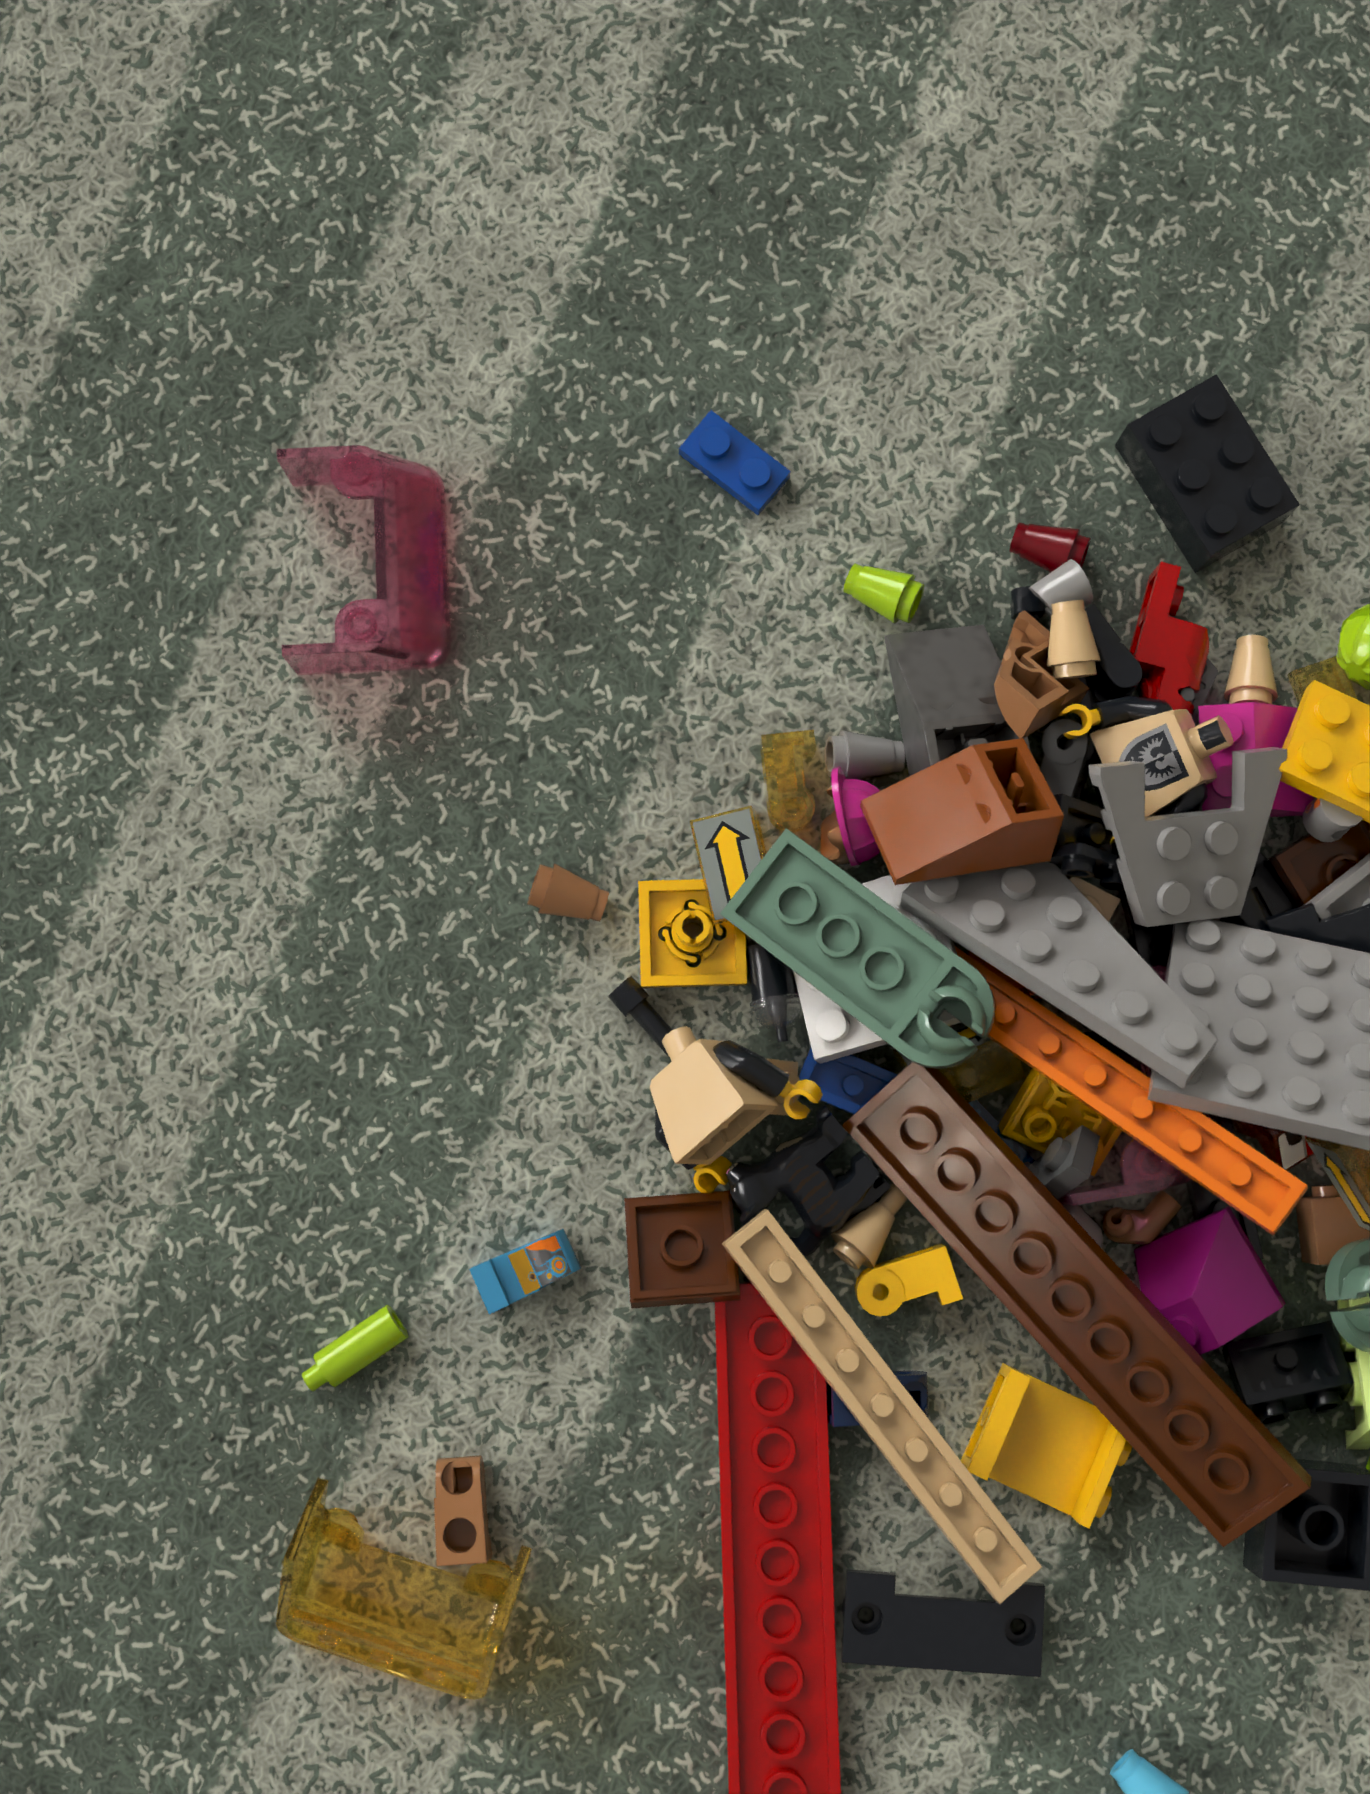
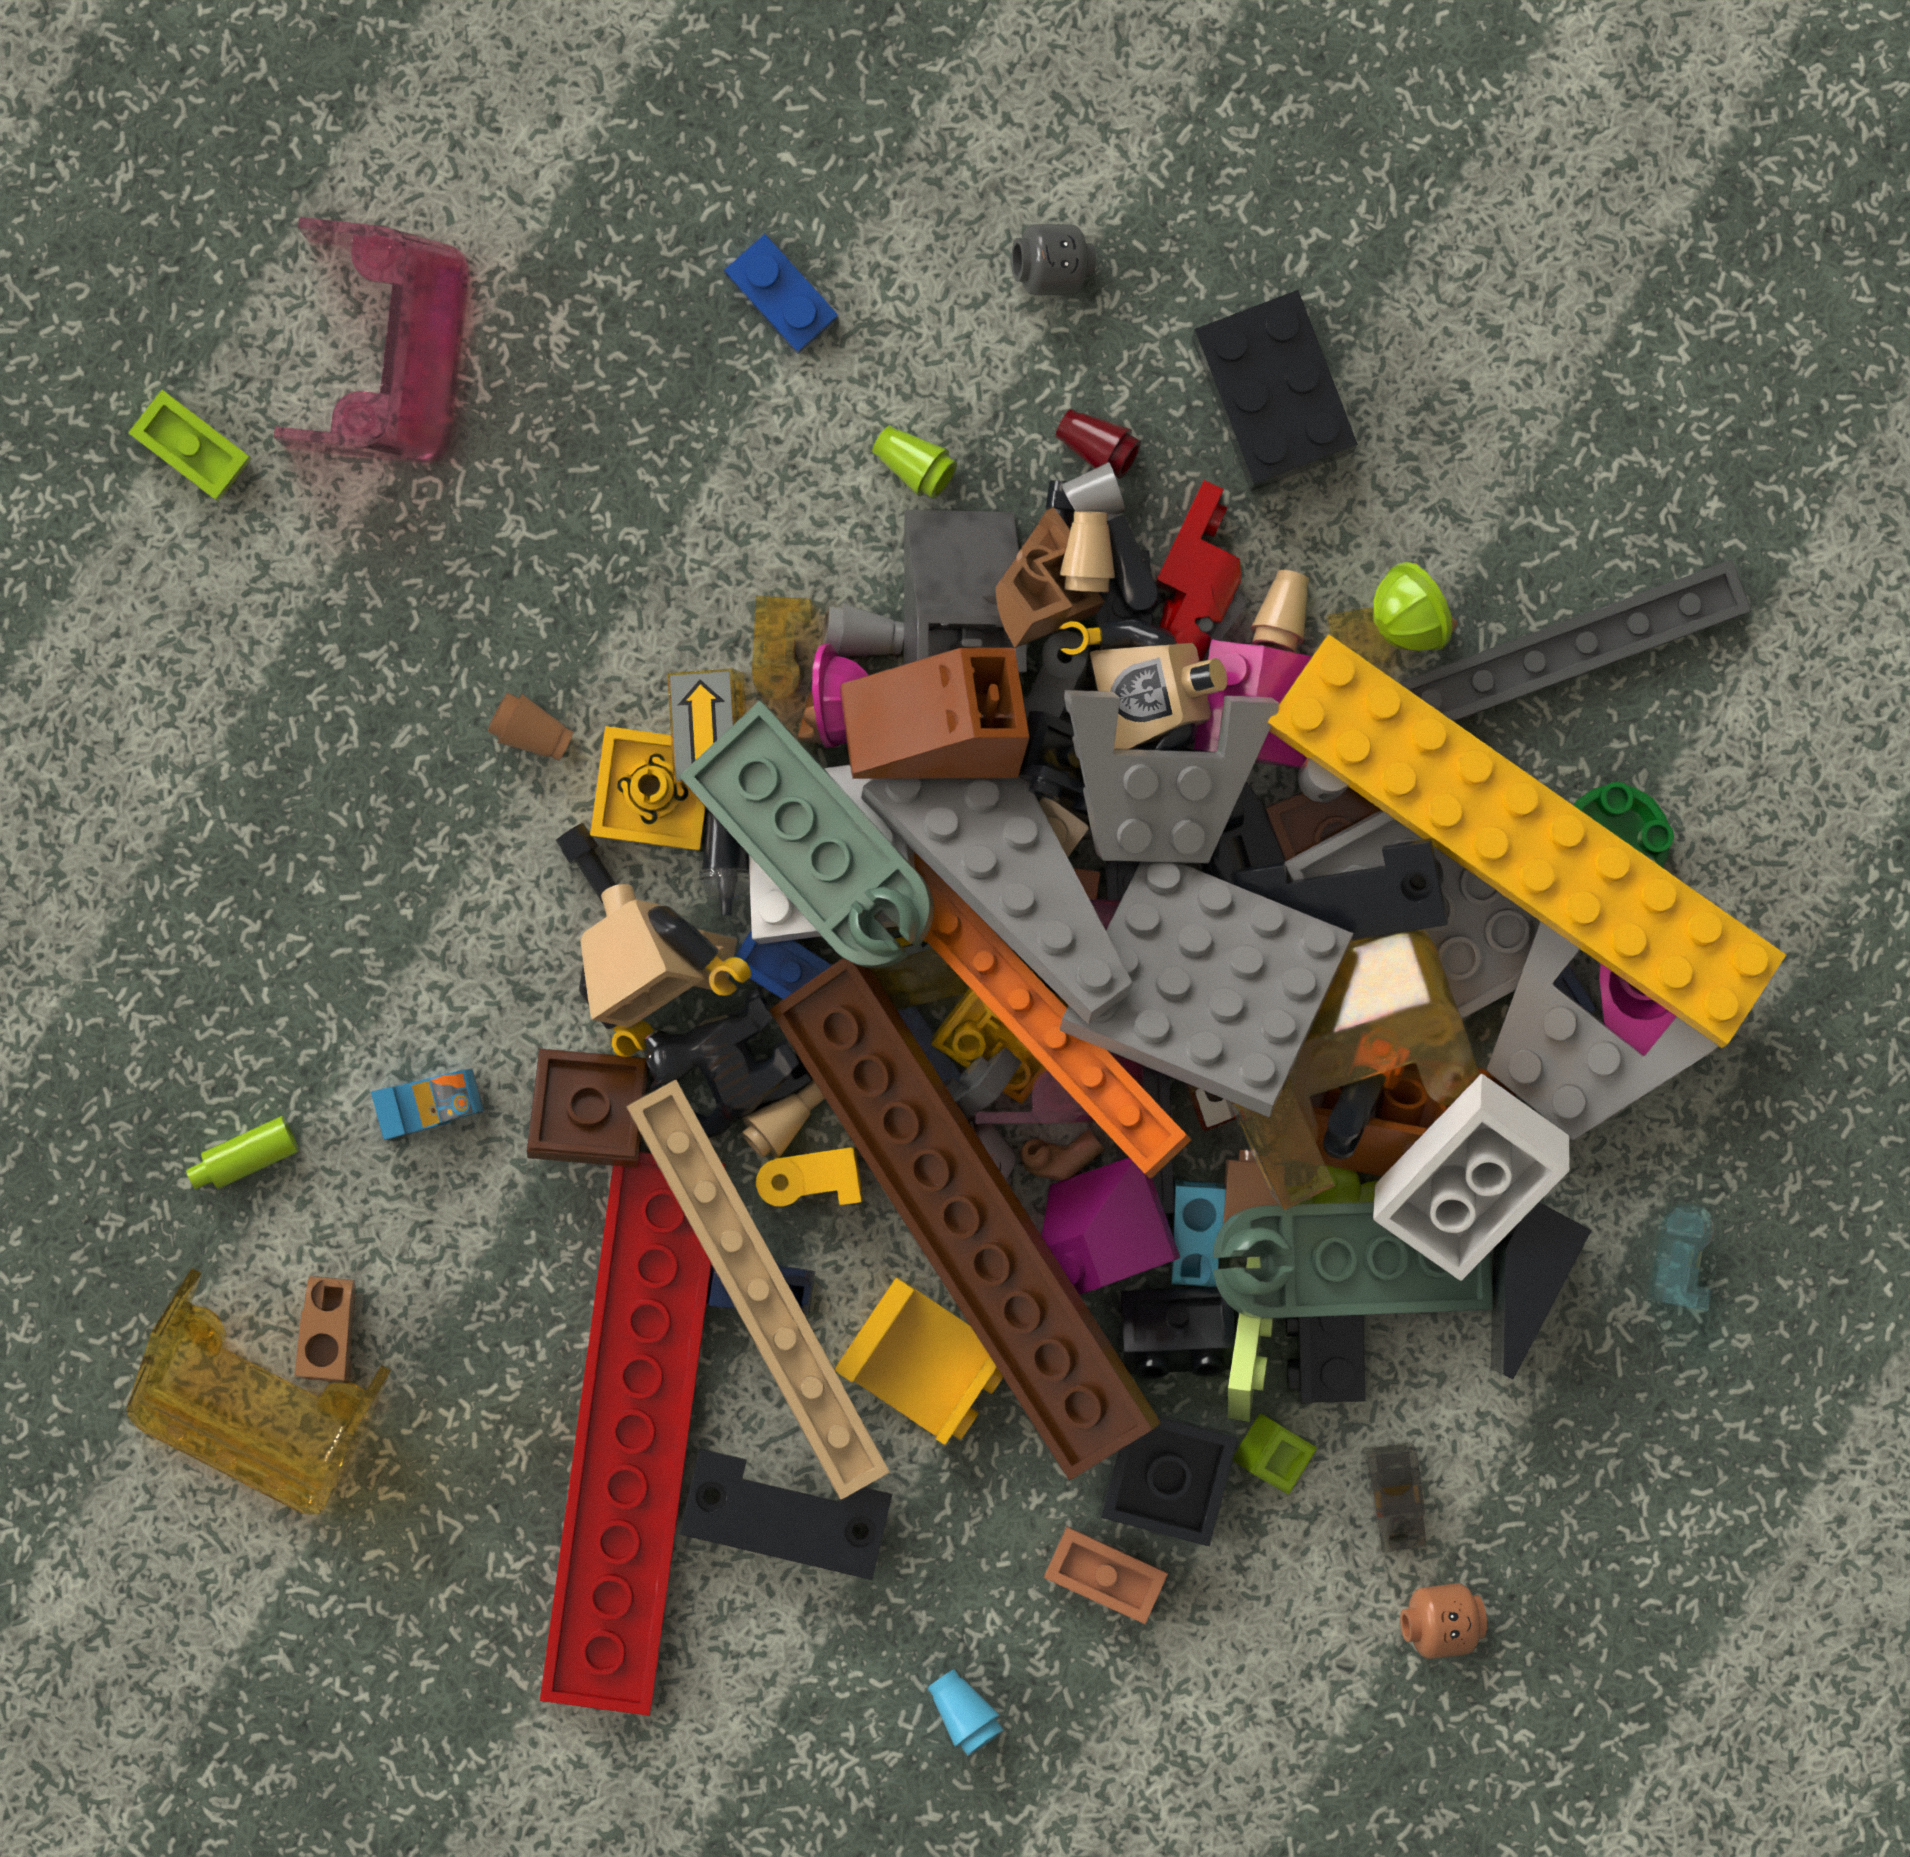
camera: 10 degrees right, 5 degrees up
(208, 684) = (190, 445): none -> lime plate
(979, 390) = (1052, 259): none -> dark grey head
(1264, 1629) = (1105, 1575): none -> nougat plate
(1293, 1267) = (1196, 1223): none -> medium azure leg

